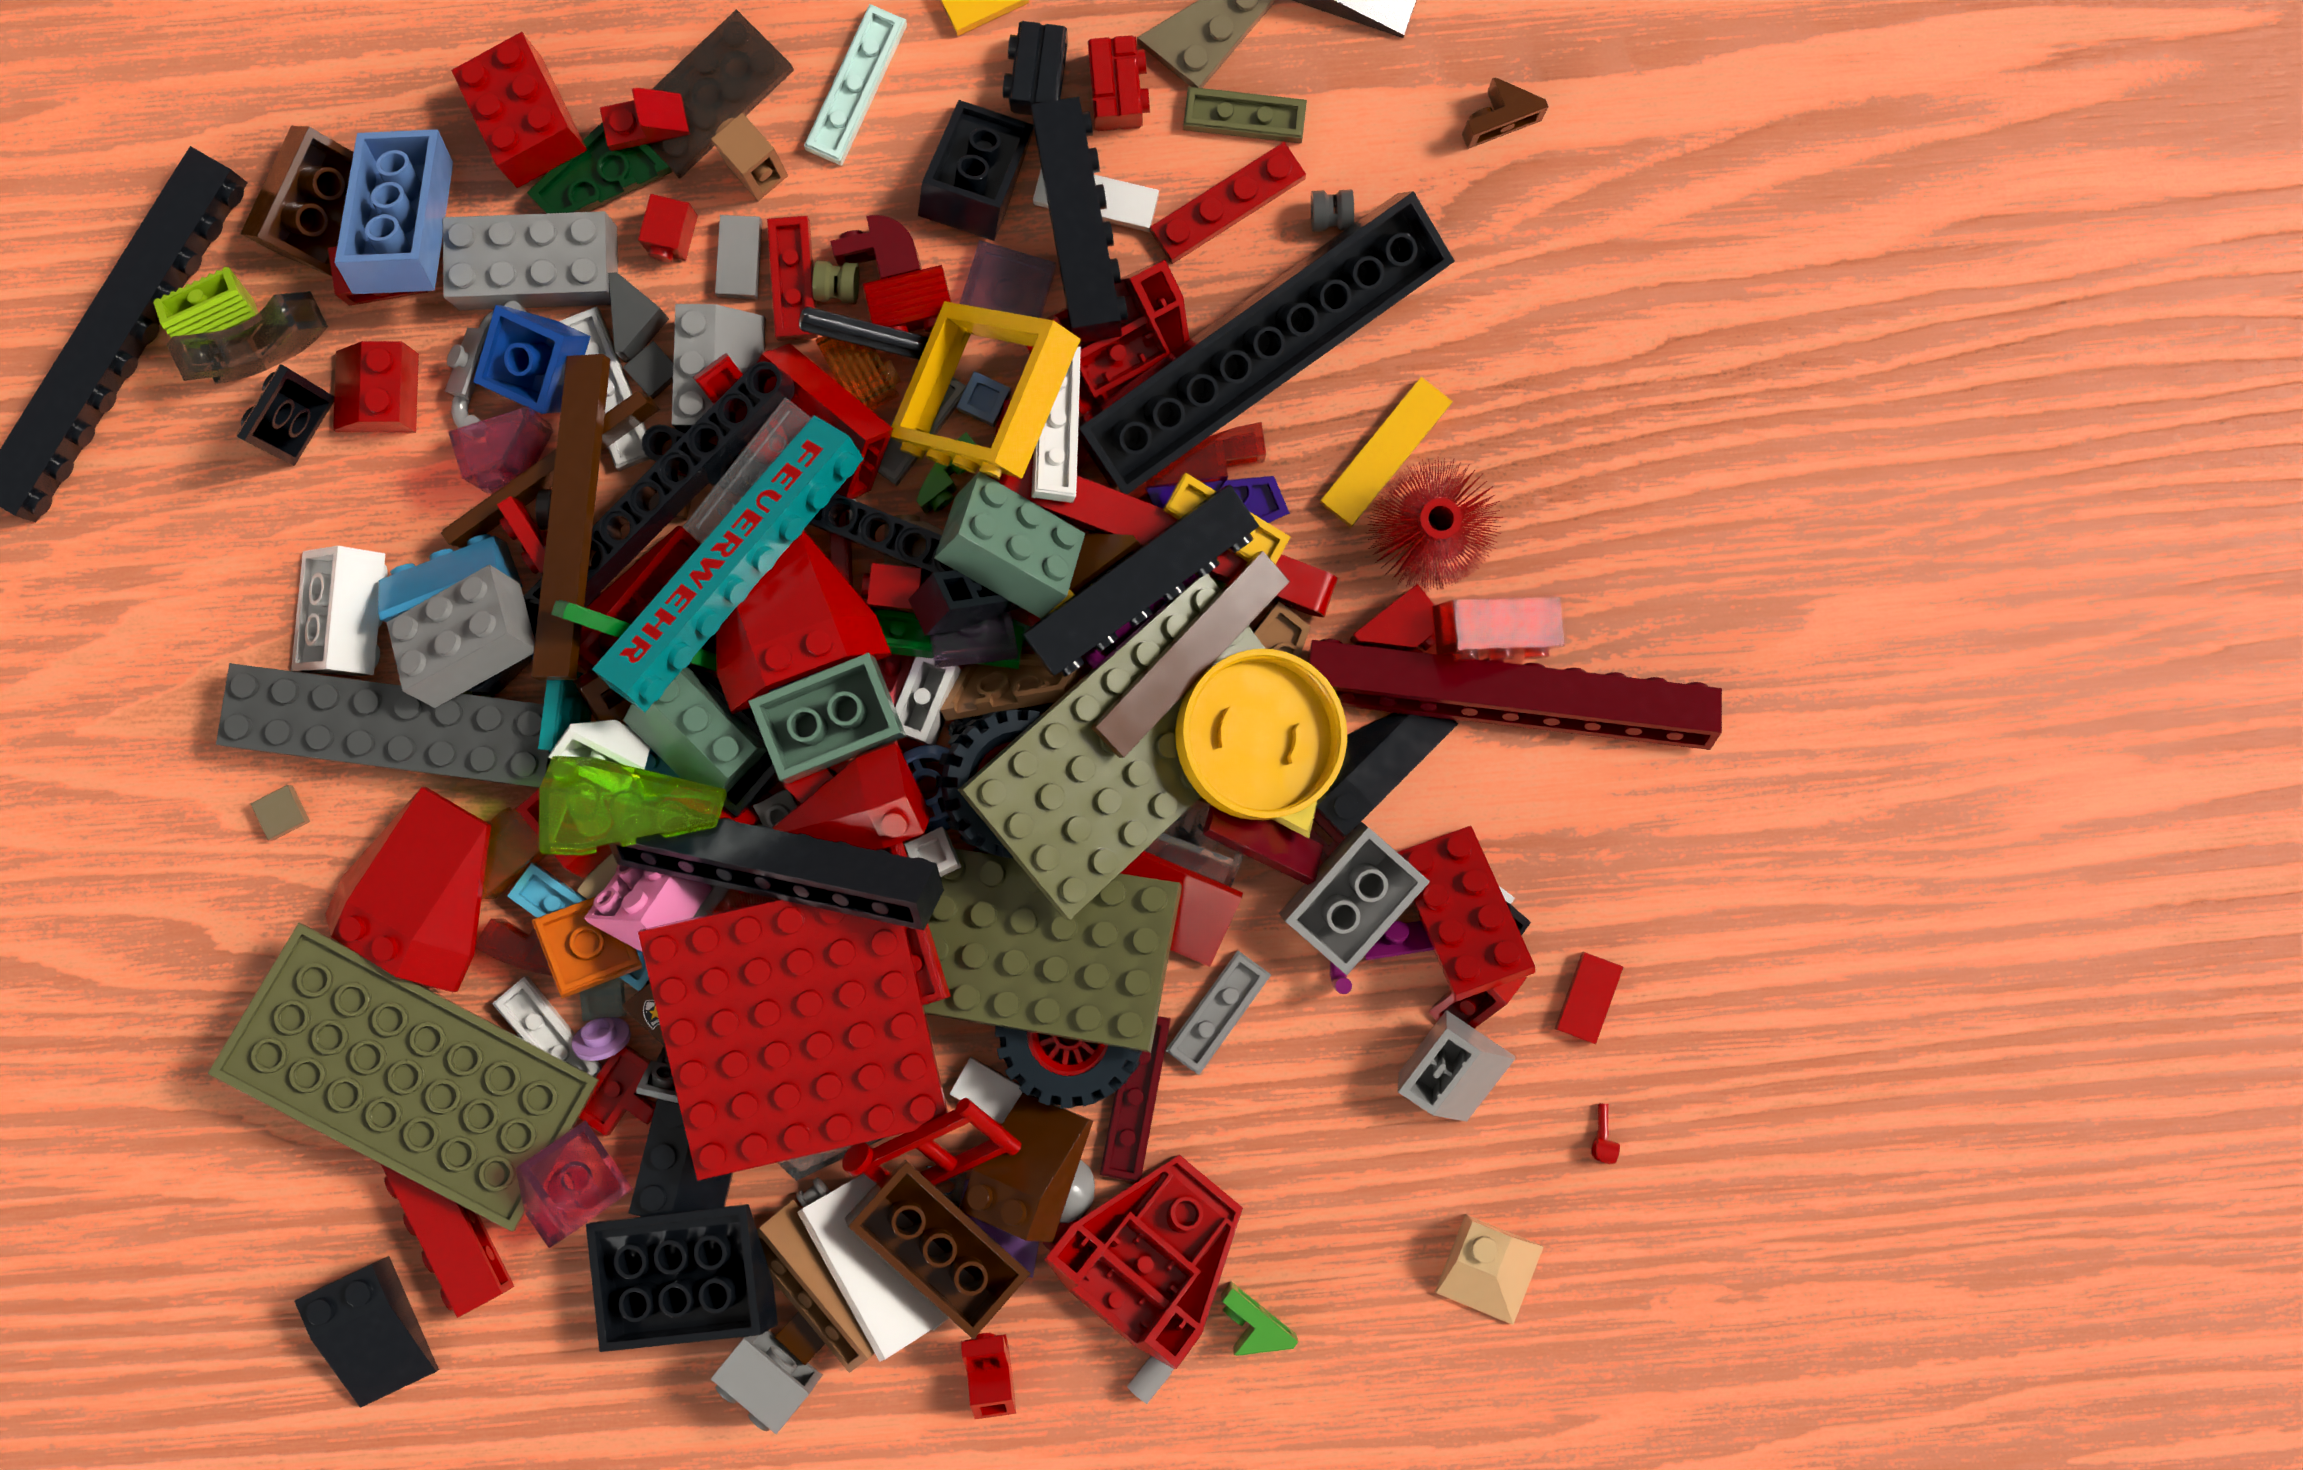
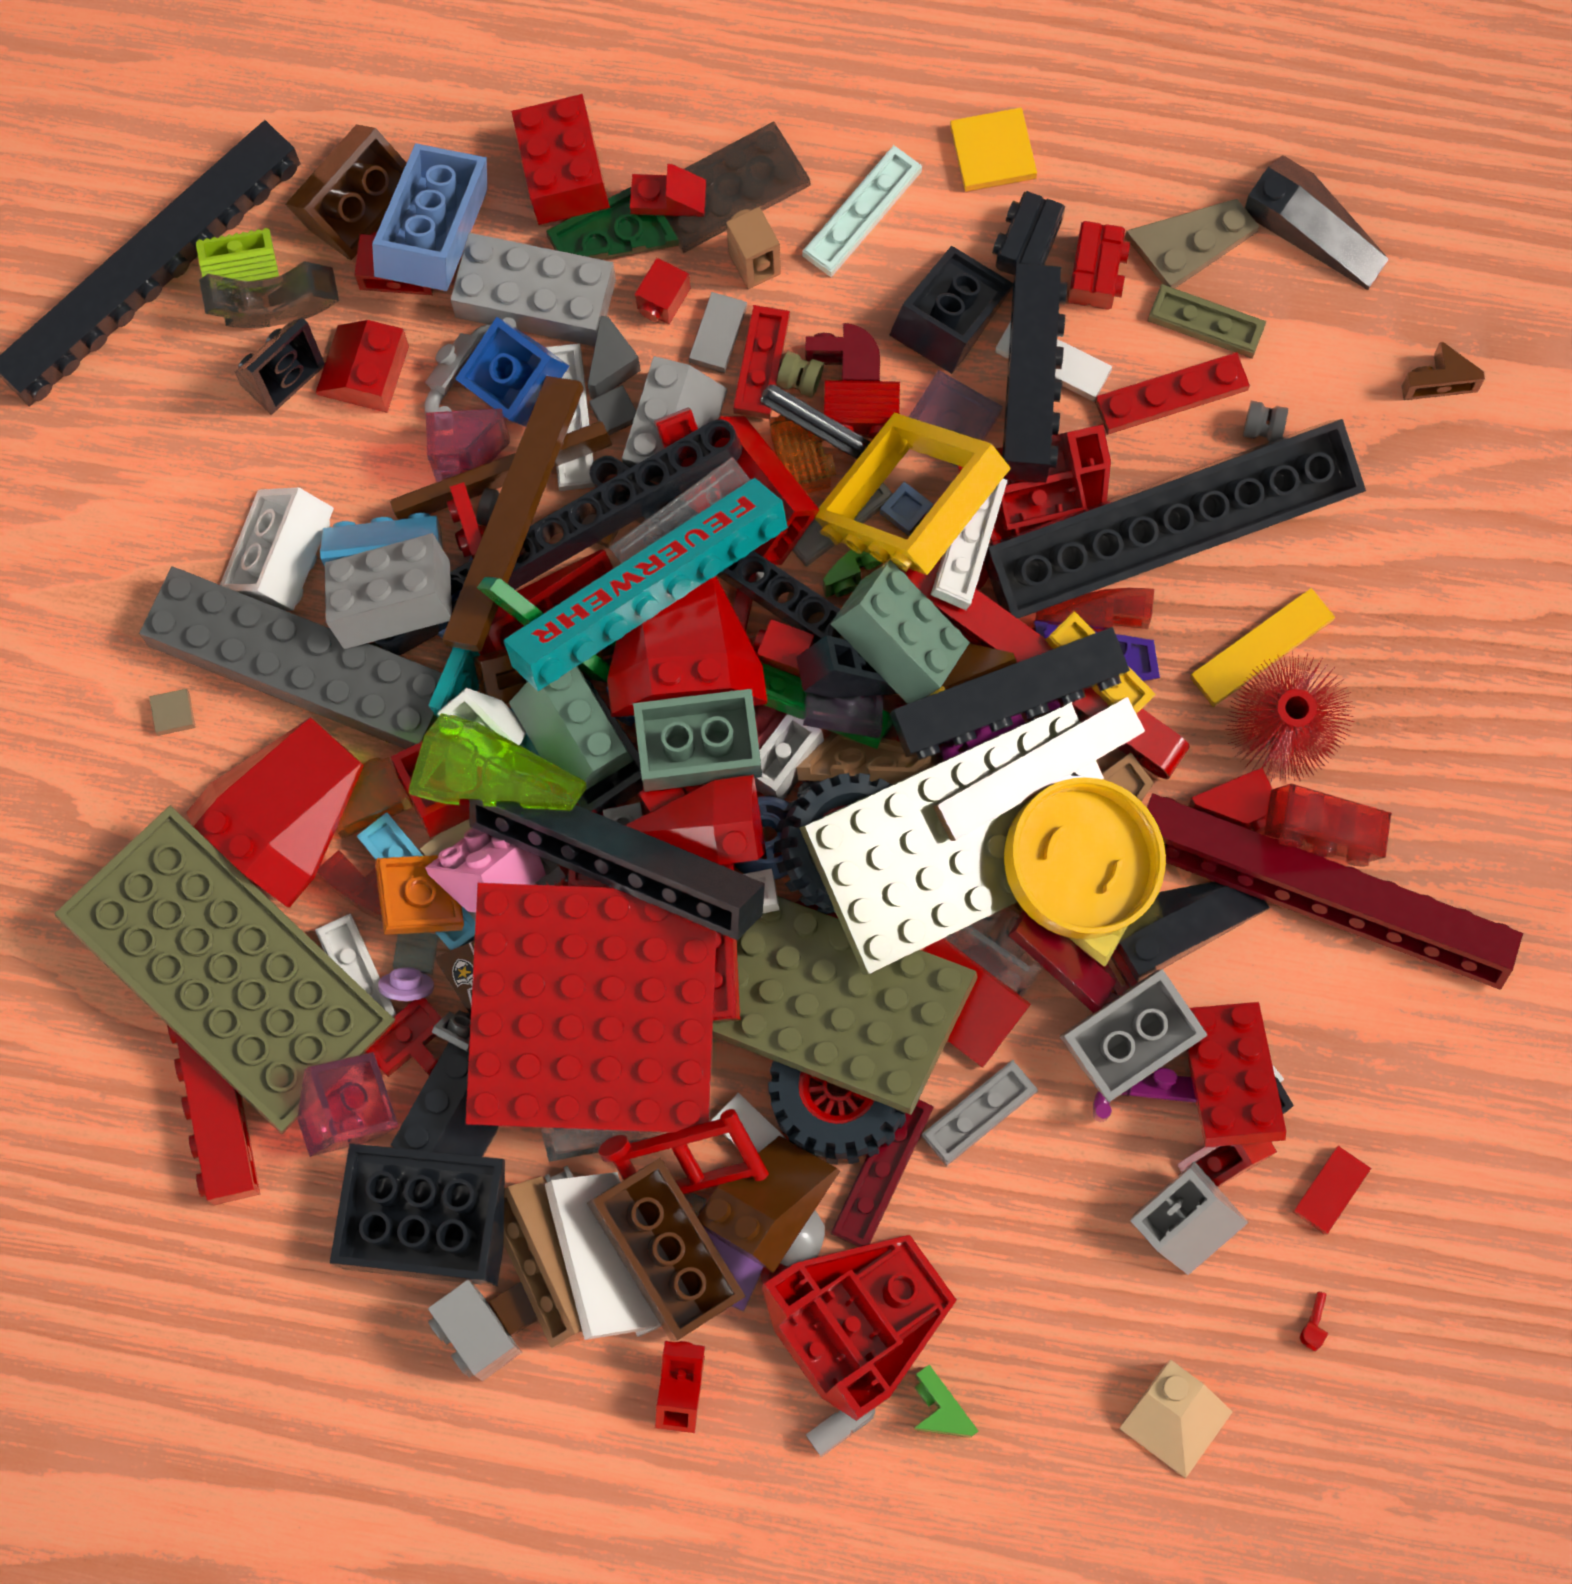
camera: 15 degrees right, 10 degrees down
(368, 1332) = (118, 1197): black slope -> none

